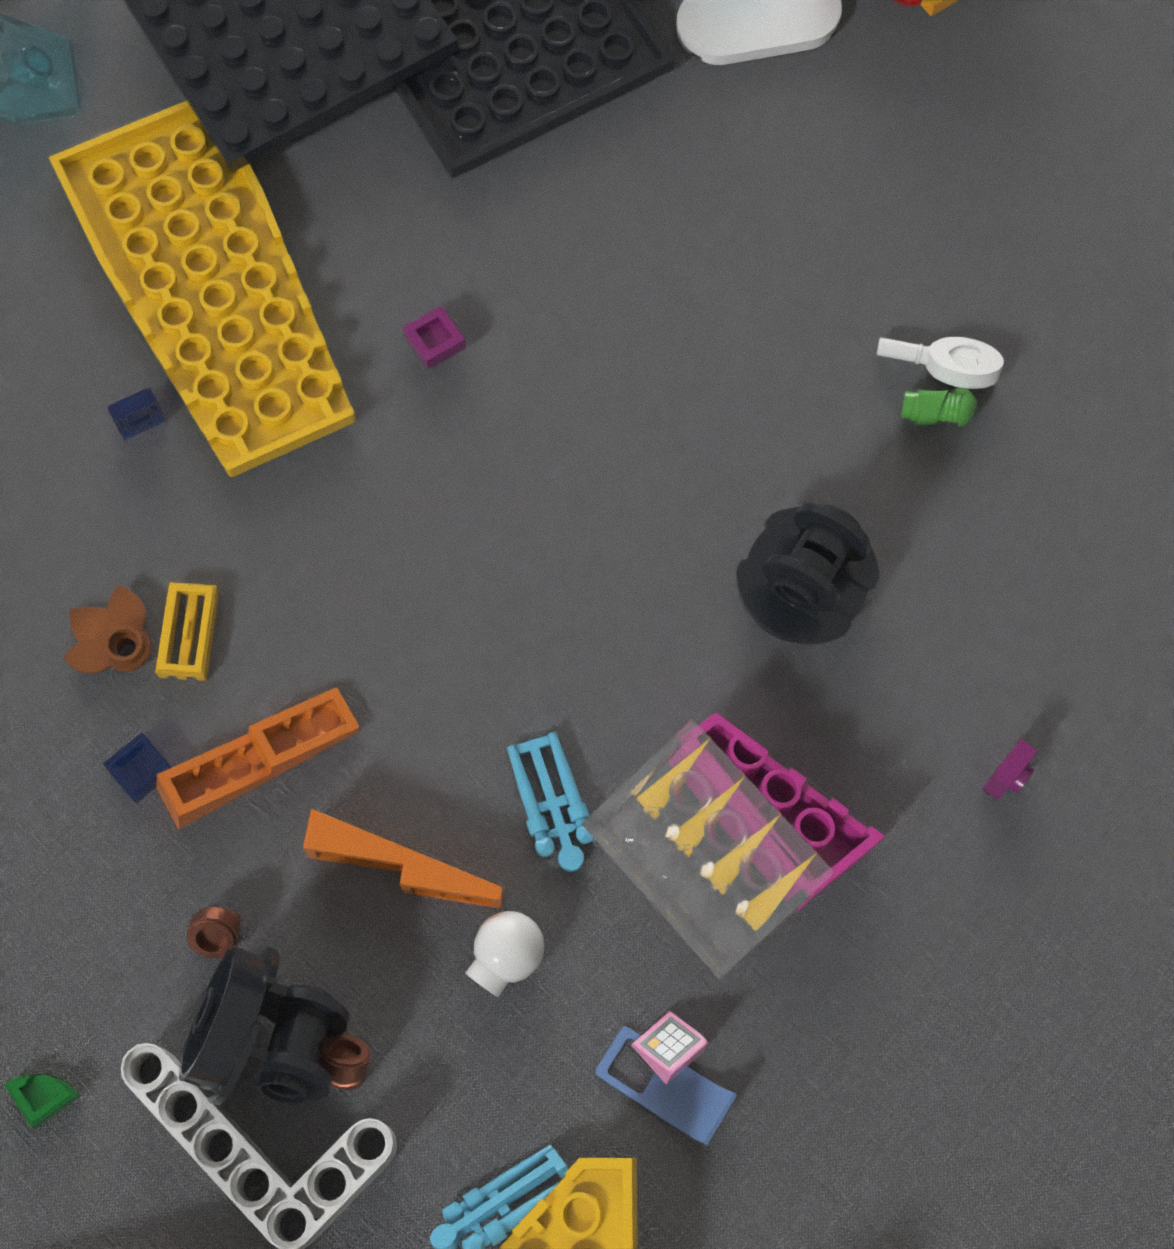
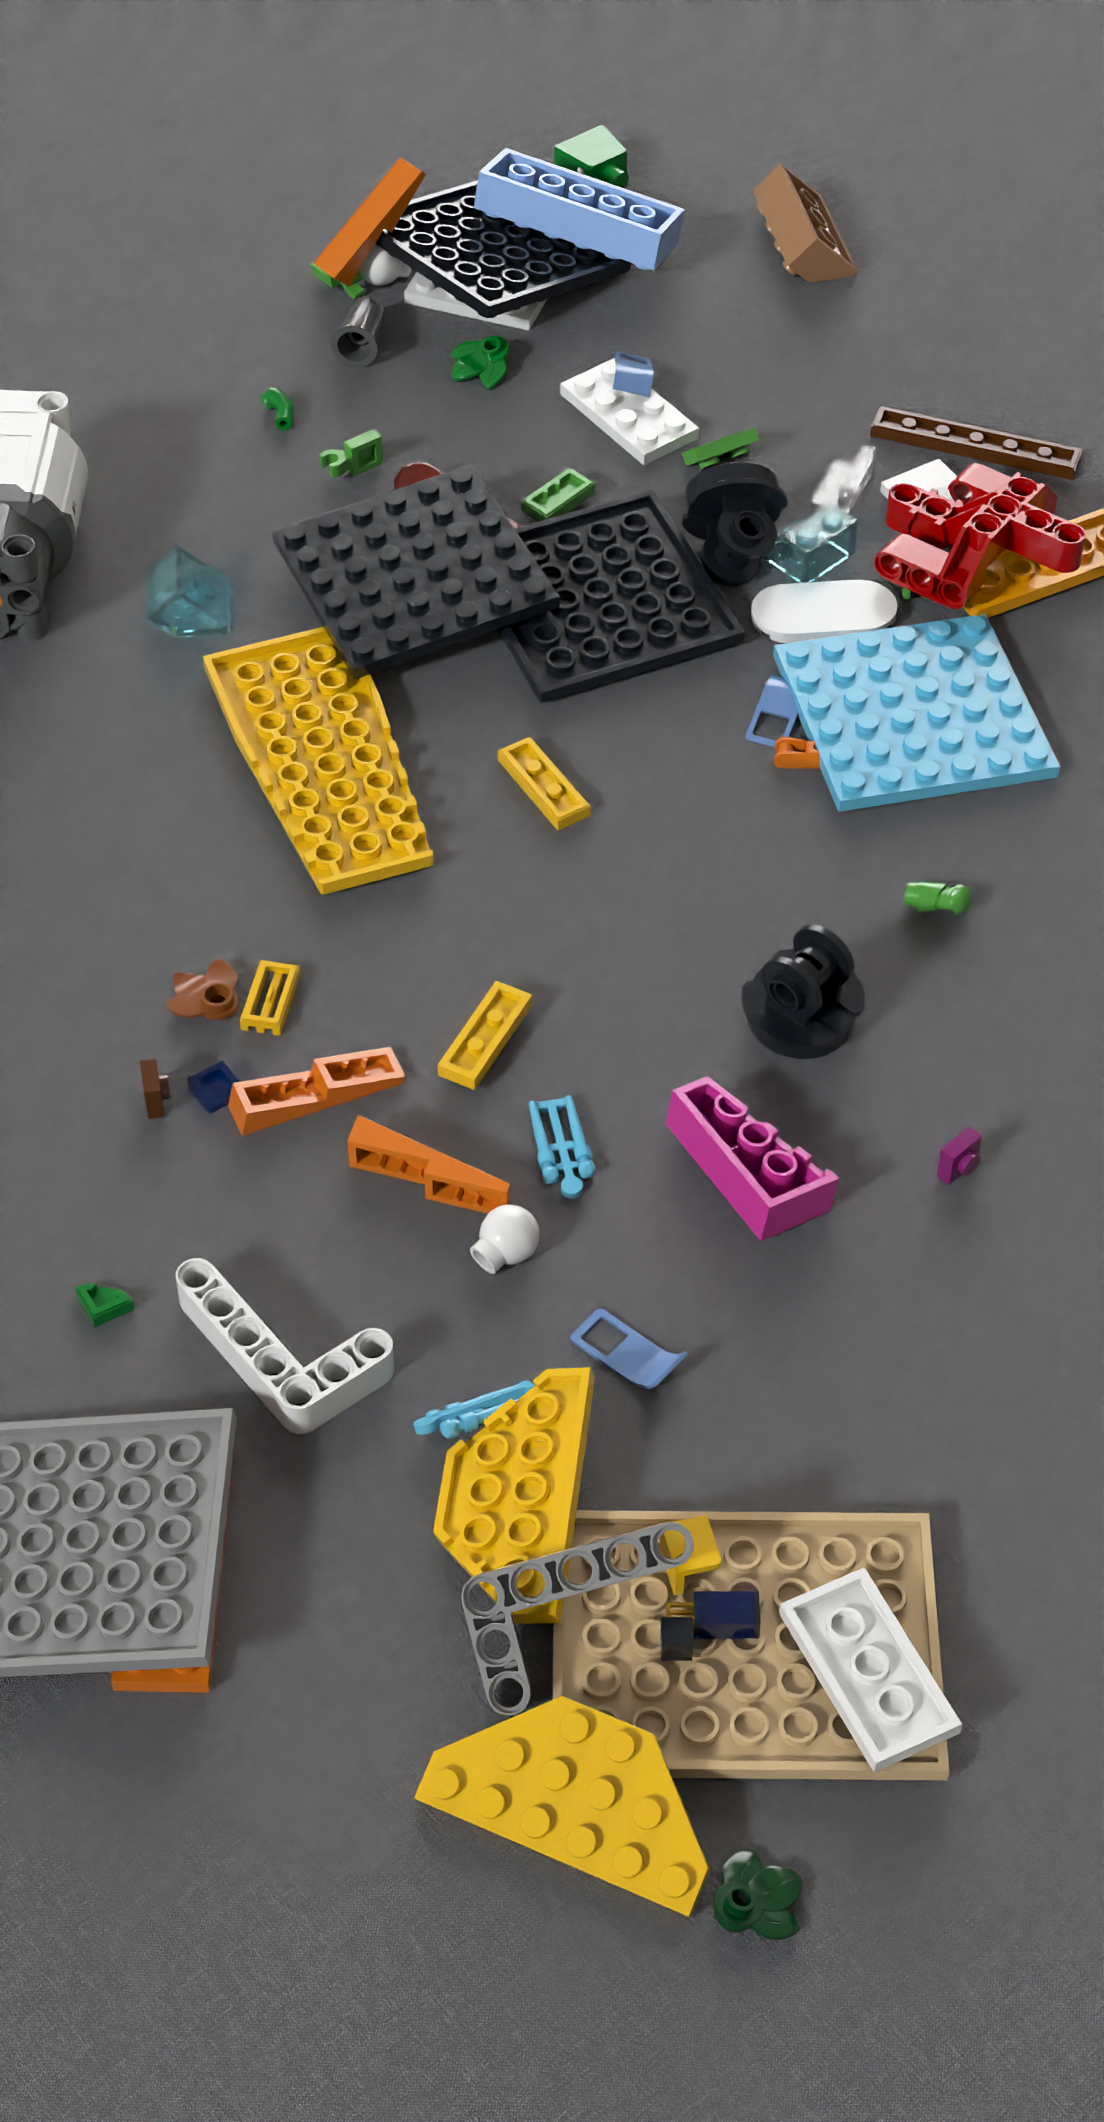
camera: 10 degrees right, 20 degrees down
(64, 786) = (155, 1088): none -> reddish brown plate
(136, 413) = (250, 840): clear blue tile -> none
(213, 931) = (263, 1200): copper tile -> none
(225, 1032) = (299, 1257): black piece -> none
(345, 1060) = (359, 1297): copper tile -> none
(434, 337) = (509, 810): magenta plate -> none
(445, 661) = (484, 1035): none -> yellow plate
(469, 291) = (544, 783): none -> yellow tile
(670, 1046) = (638, 1322): slope -> none
(708, 849) = (687, 1170): clear slope -> none
(725, 147) = (777, 701): none -> medium blue piece
(774, 220) = (796, 754): none -> orange bar
(877, 149) = (915, 712): none -> medium azure plate
(950, 360) = (951, 864): white piece -> none

